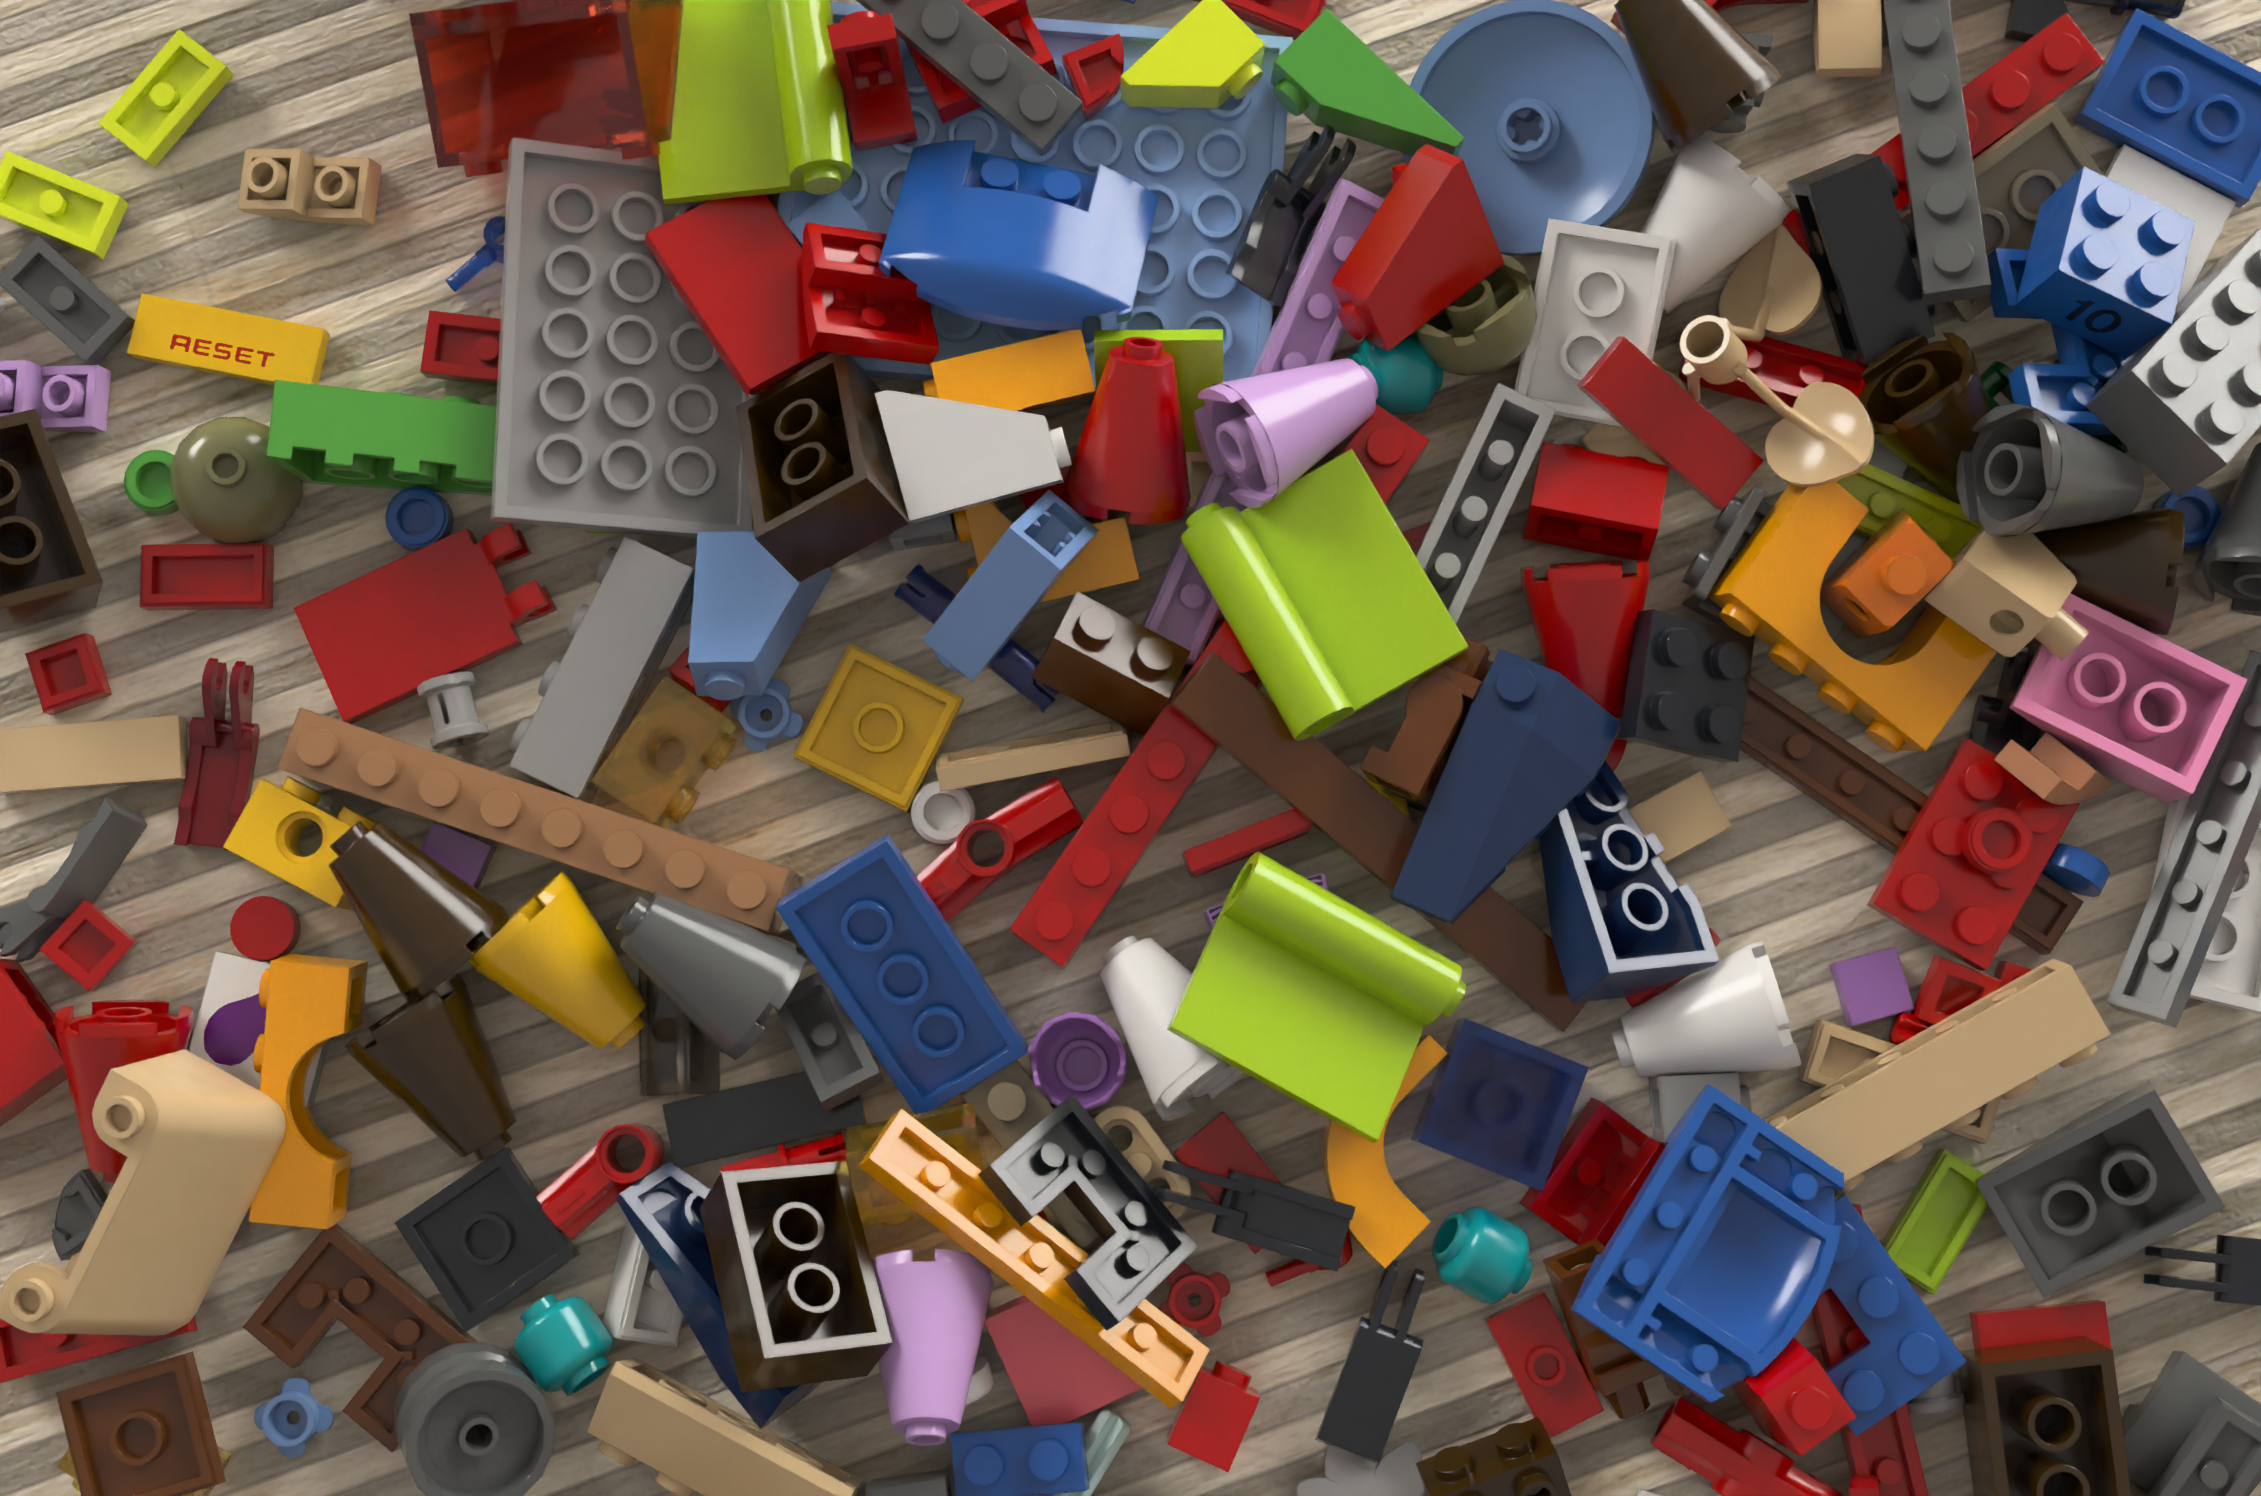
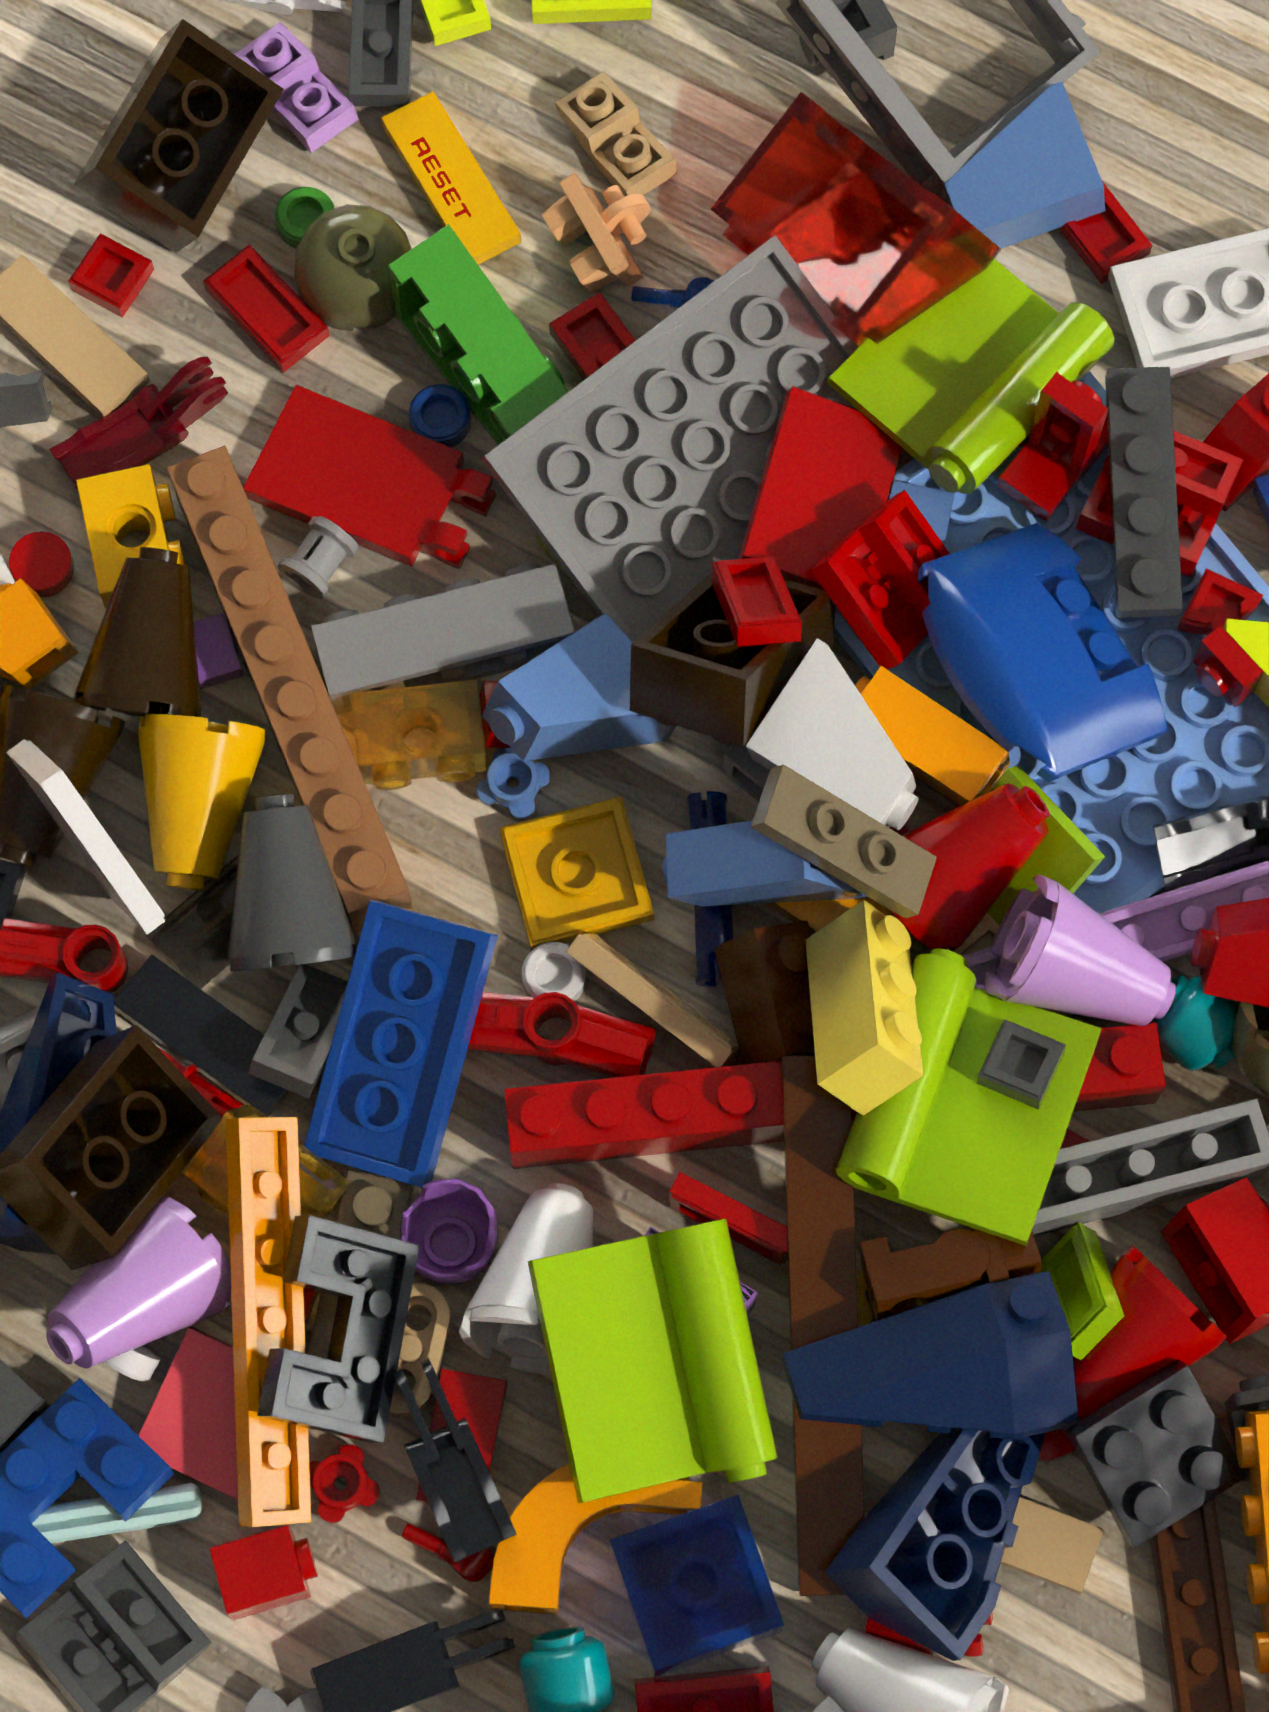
camera: 50 degrees right, 10 degrees down
(349, 267) = (583, 212): none -> light nougat hips
(530, 1084) = (87, 835): none -> white tile
(800, 412) = (756, 601): none -> red tile
(1056, 515) = (843, 841): none -> dark tan plate
(1152, 110) = (1226, 667): none -> red plate
(1192, 611) = (863, 1007): none -> light yellow brick
(1330, 531) = (1021, 1064): none -> dark grey tile
(1524, 630) = (1083, 1288): none -> lime tile

